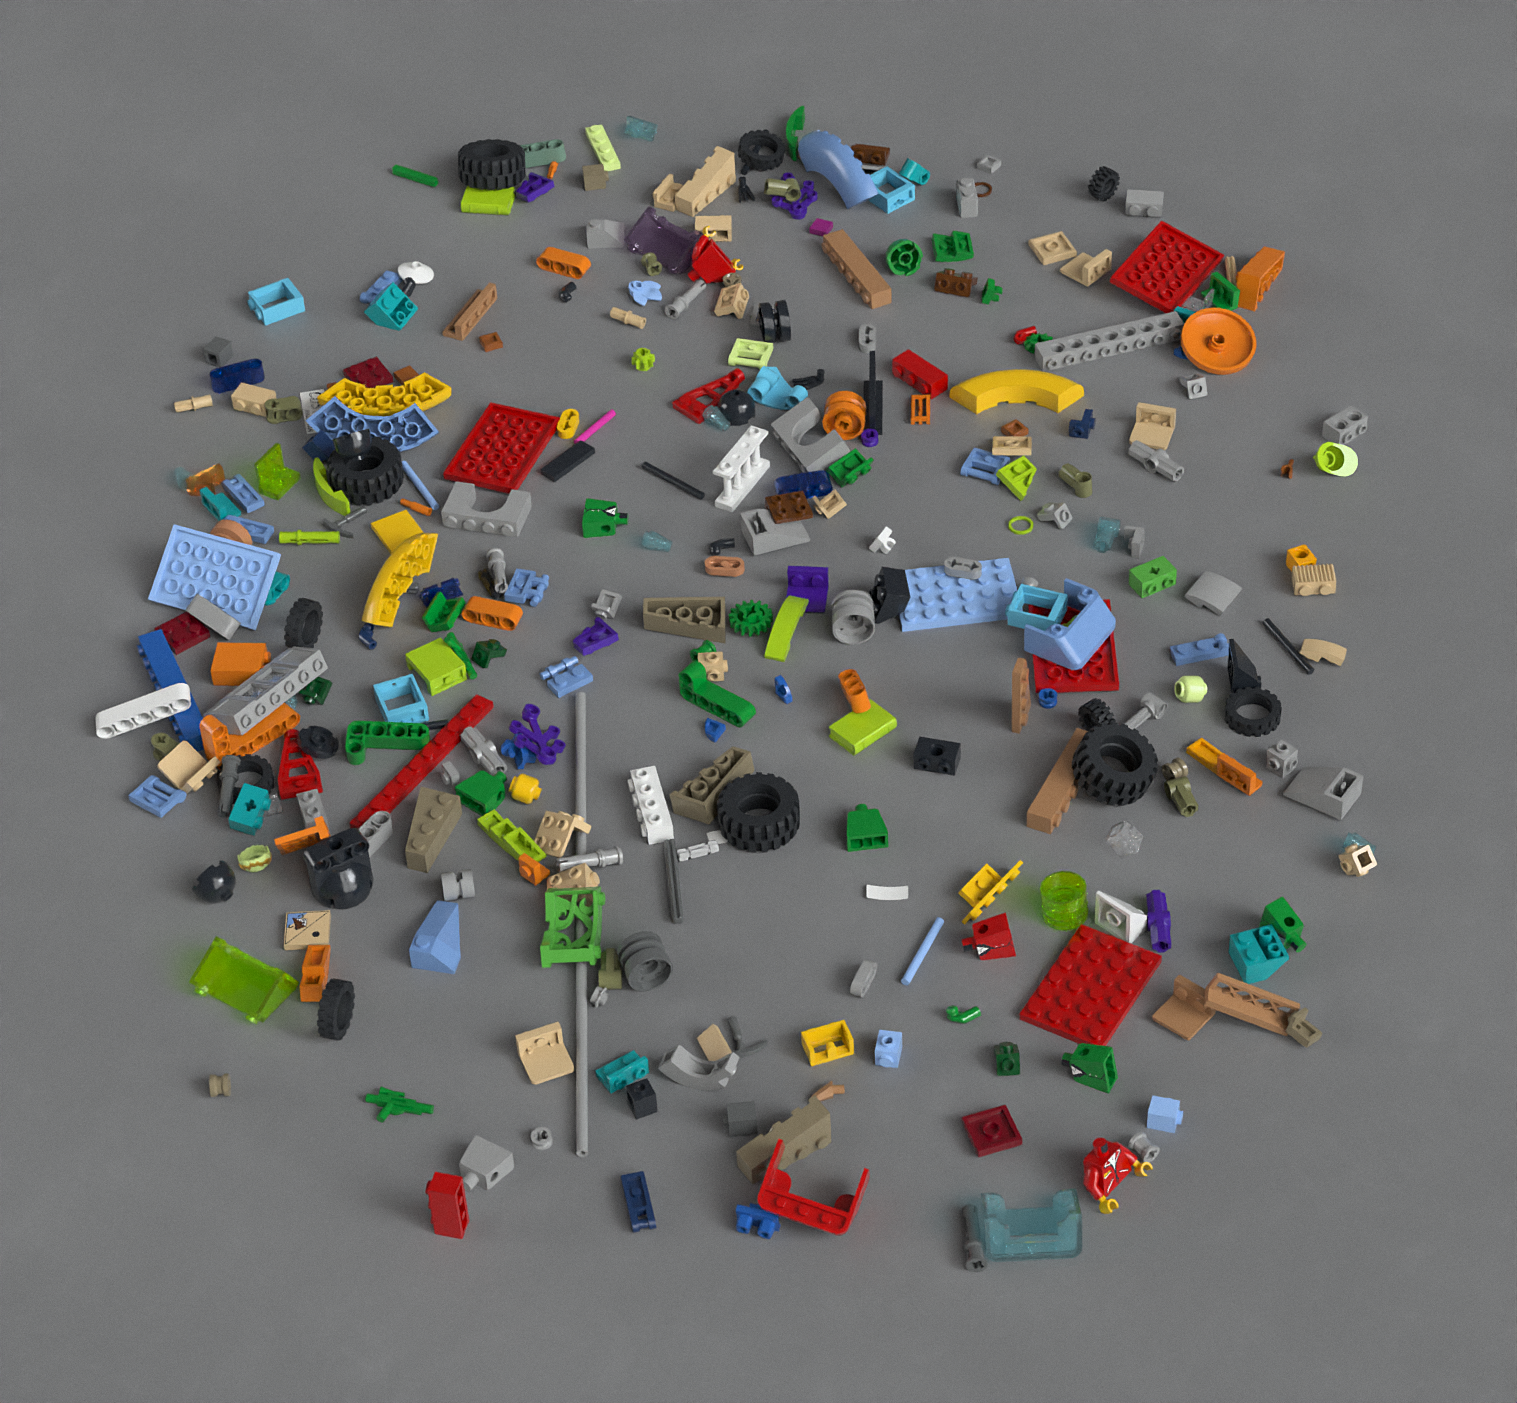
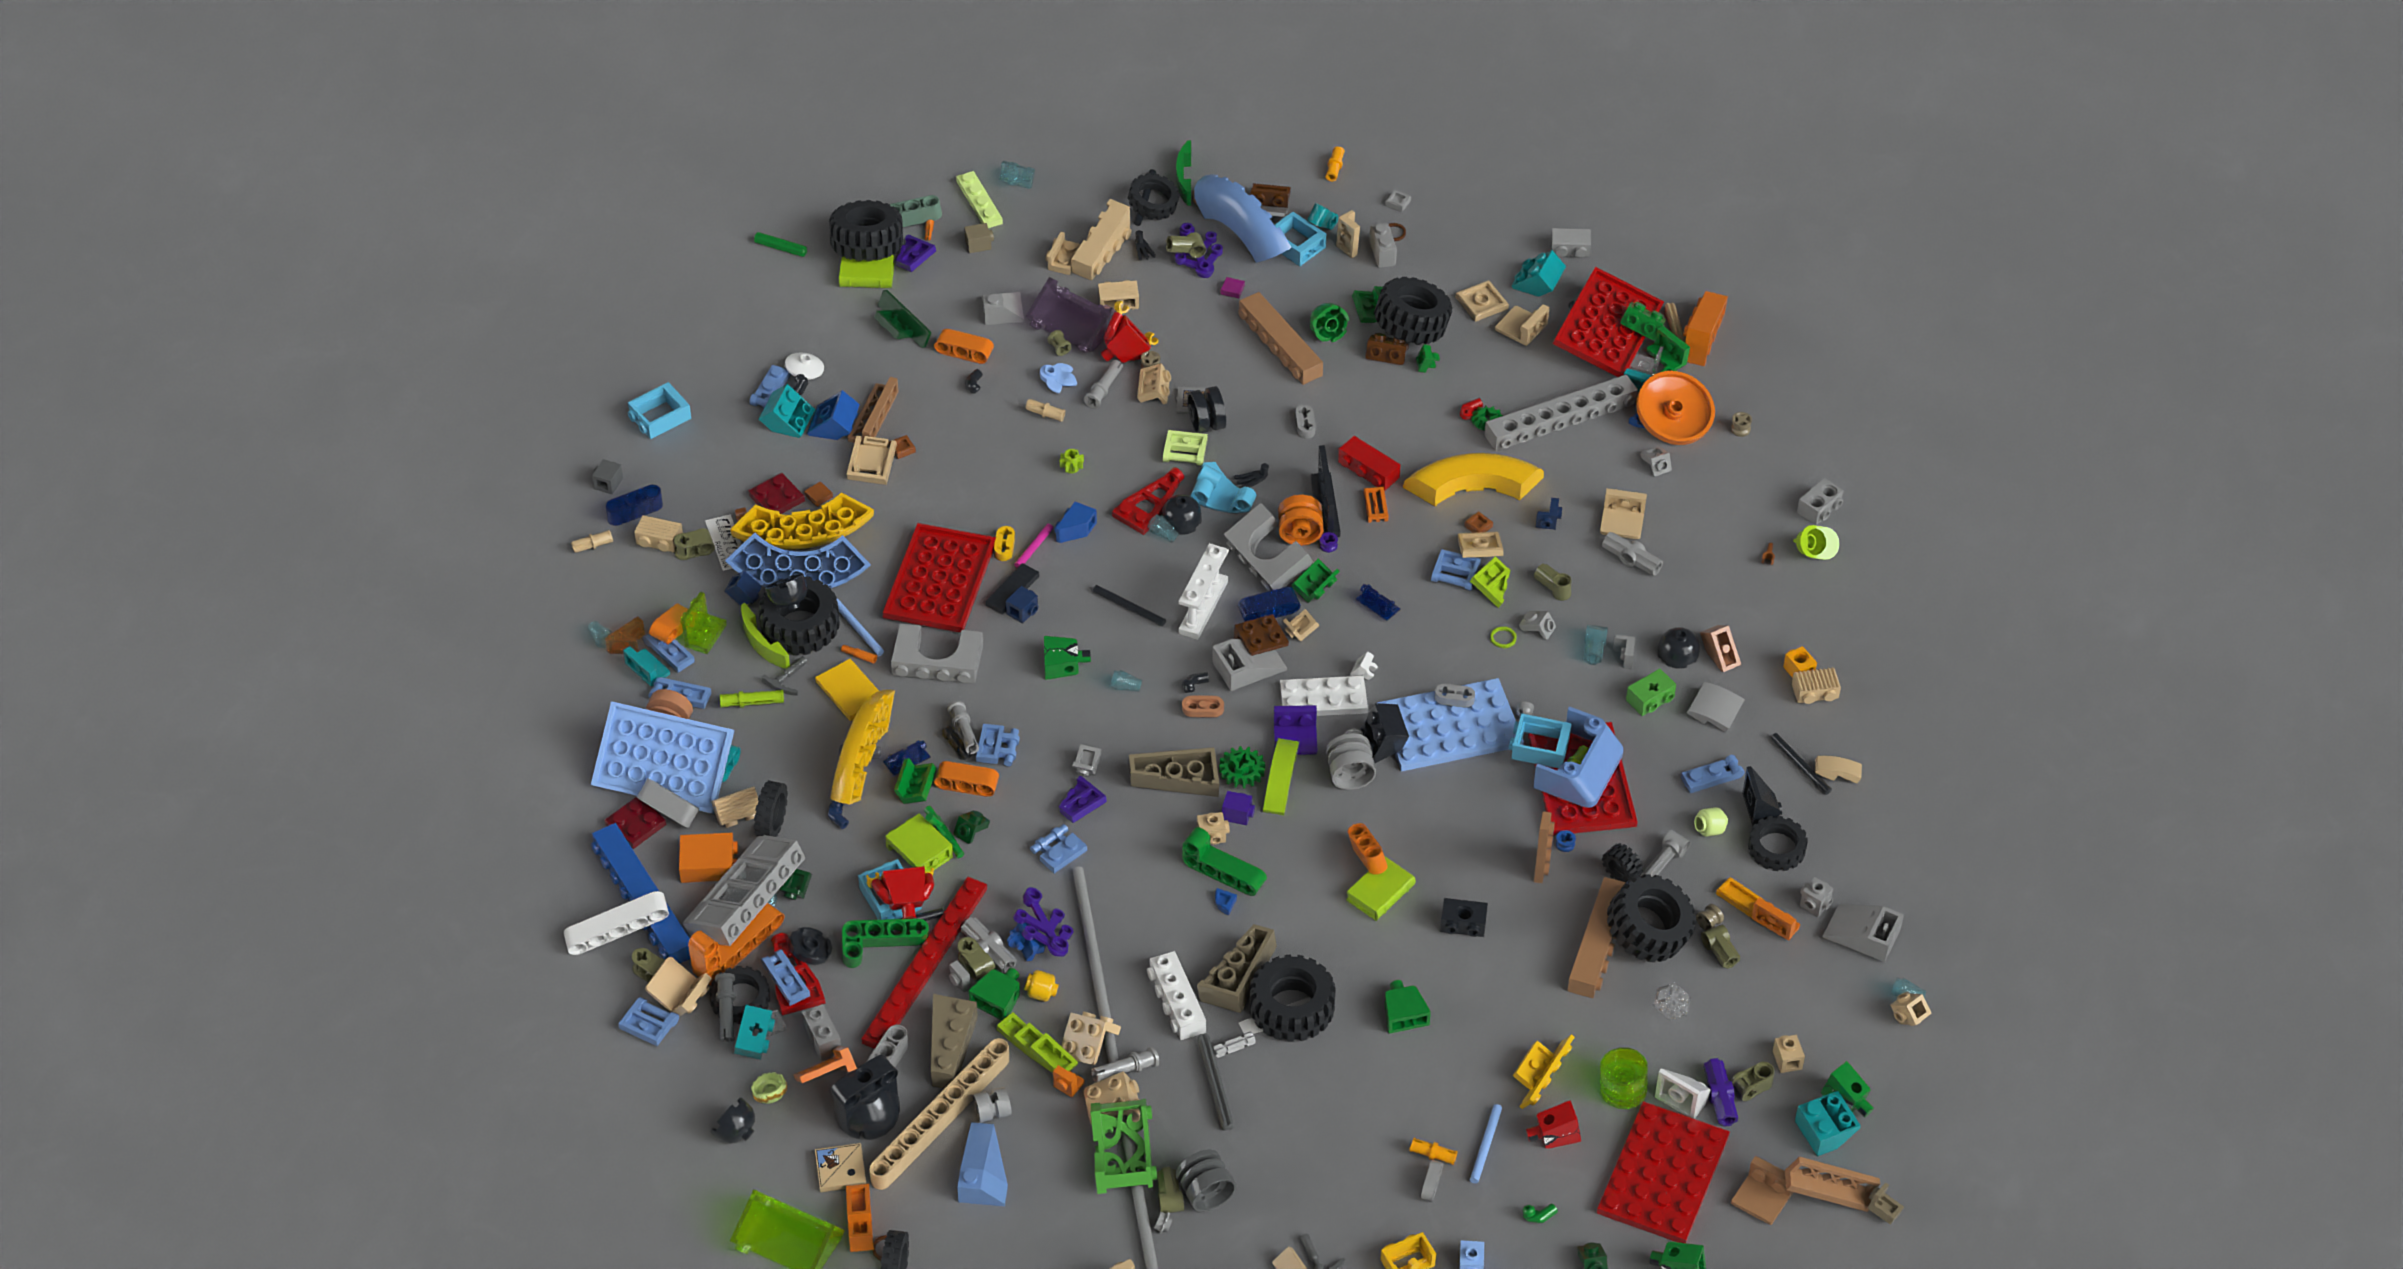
camera: 10 degrees left, 5 degrees up
(242, 472) = (668, 625): none -> orange beam
(271, 623) = (735, 807): none -> tan brick
(288, 765) = (785, 977): none -> medium blue plate
(407, 890) = (929, 1118): none -> tan beam
(411, 695) = (903, 888): none -> red torso
(433, 314) = (834, 417): none -> blue slope
(463, 348) = (871, 457): none -> tan container
(466, 760) = (974, 958): none -> olive piece
(510, 240) = (900, 320): none -> dark green bracket
(573, 473) = (1022, 604): none -> dark blue brick
(636, 410) = (1076, 523): none -> blue slope
(707, 646) = (1202, 807): green bush -> none
(739, 651) = (1238, 808): none -> dark purple brick
(782, 689) = (1290, 850): blue tile -> none
(844, 564) = (1330, 694): none -> white plate
(870, 953) = (1433, 1151): none -> light orange pin
(887, 893) = (1437, 1078): white sticker -> none
(905, 489) = (1377, 603): none -> clear blue hinge
(934, 186) = (1348, 234): none -> tan bracket
(935, 131) = (1334, 164): none -> light orange pin
(982, 249) = (1413, 310): none -> black tyre
(1103, 183) = (1525, 222): black tyre -> none
(1109, 227) = (1539, 274): none -> teal slope
(1186, 541) = (1678, 647): none -> black cylinder
(1193, 913) = (1750, 1081): none -> olive piece
(1198, 267) = (1642, 320): none -> green bracket
(1227, 543) = (1721, 647): none -> nougat slope
(1231, 892) = (1788, 1053): none -> tan brick
(1280, 359) = (1741, 424): none -> dark tan wheel

